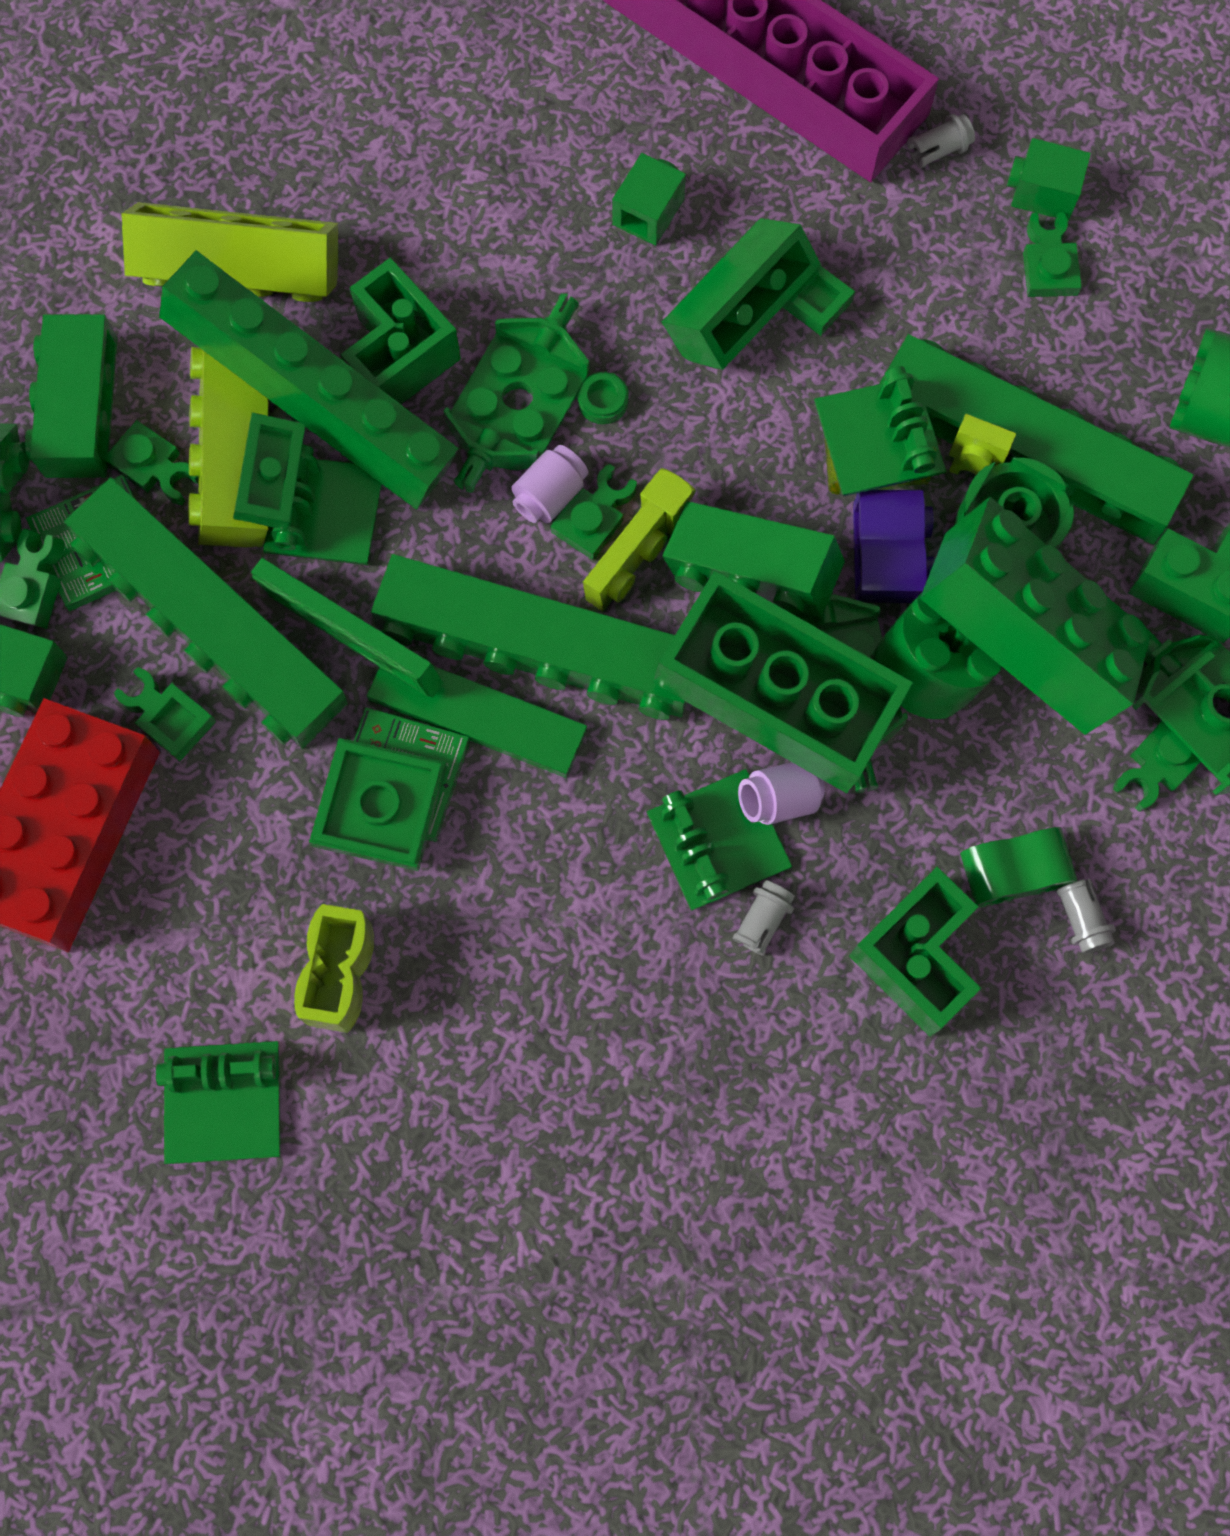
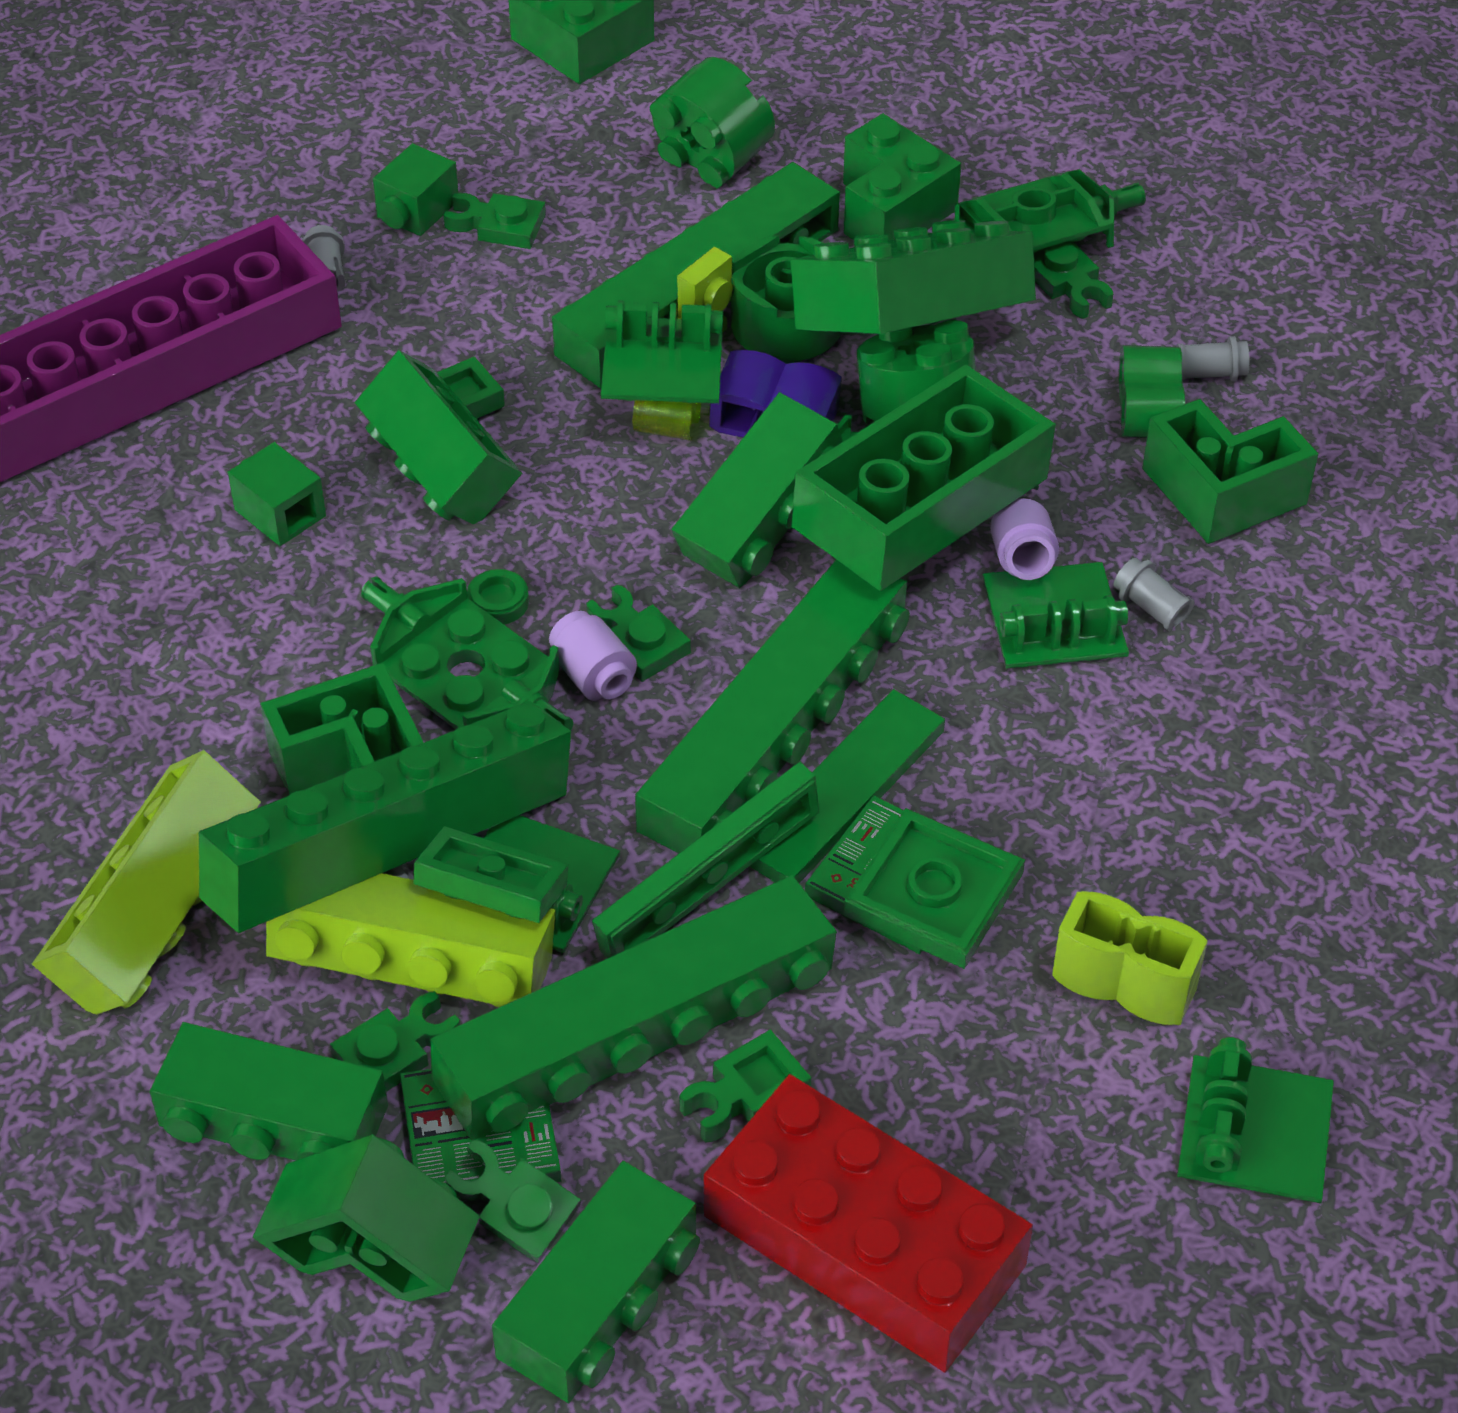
camera: 75 degrees left, 25 degrees down
(640, 540) = (690, 590): lime plate -> none

